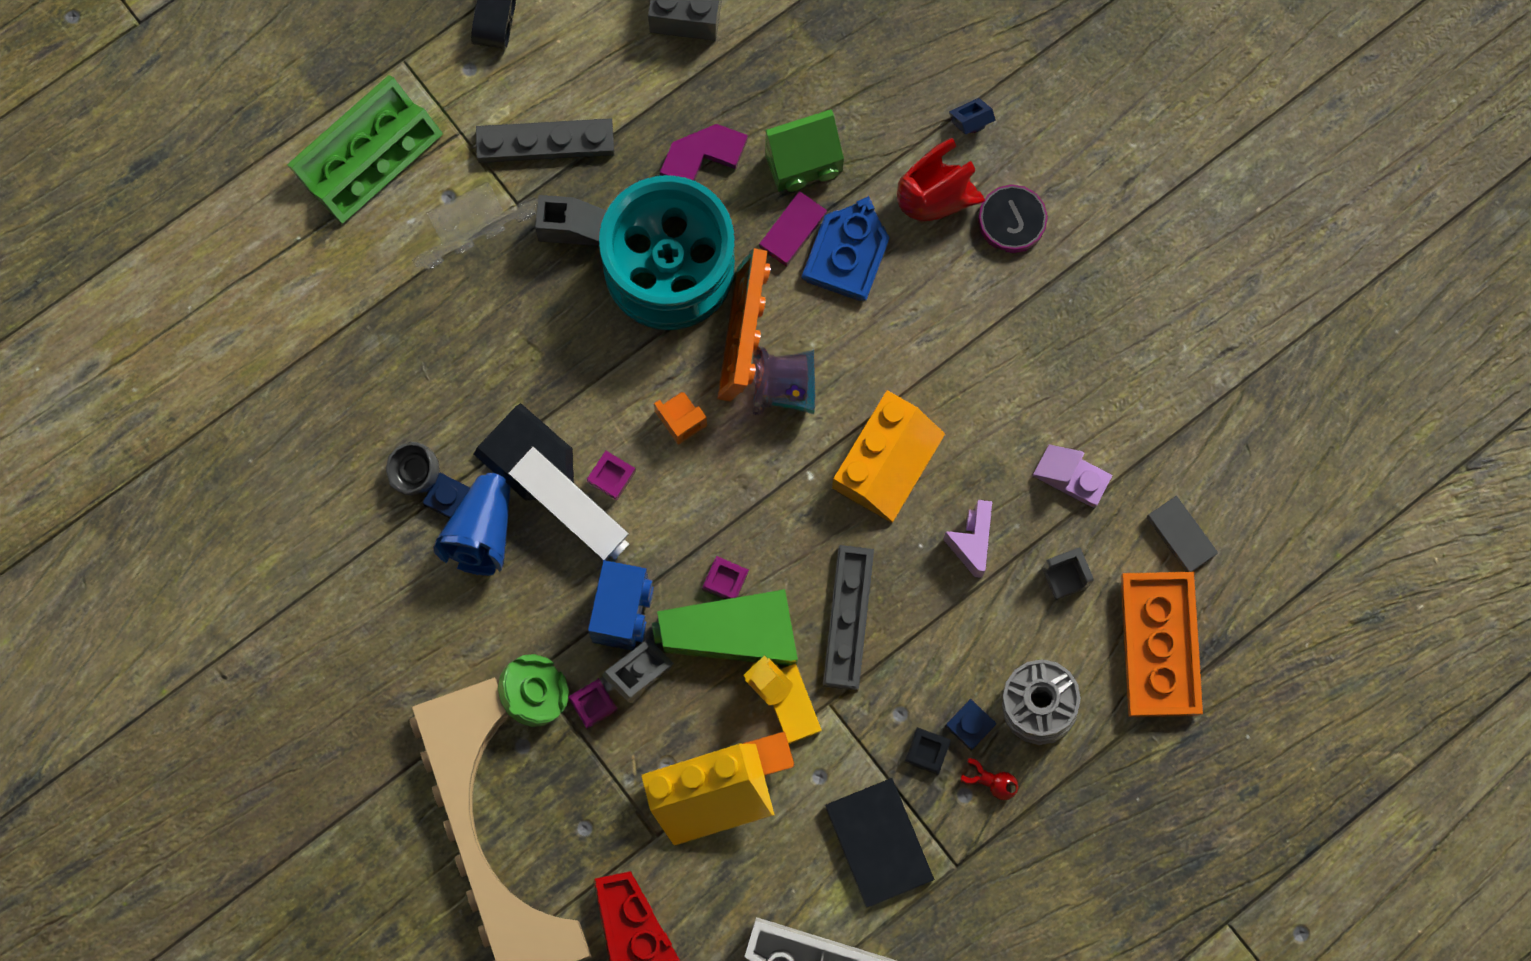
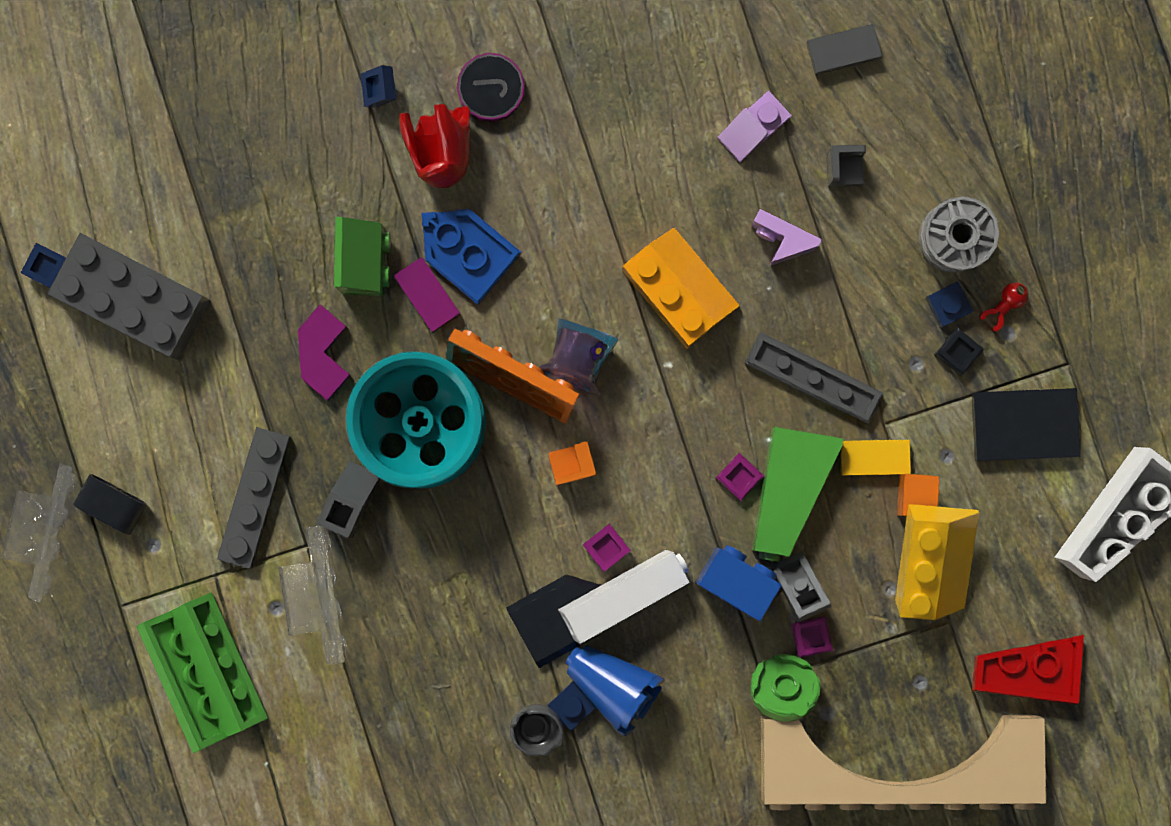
camera: 65 degrees left, 10 degrees up
(768, 681) = (853, 472): yellow piece -> none
(1161, 644) = (938, 107): orange plate -> none

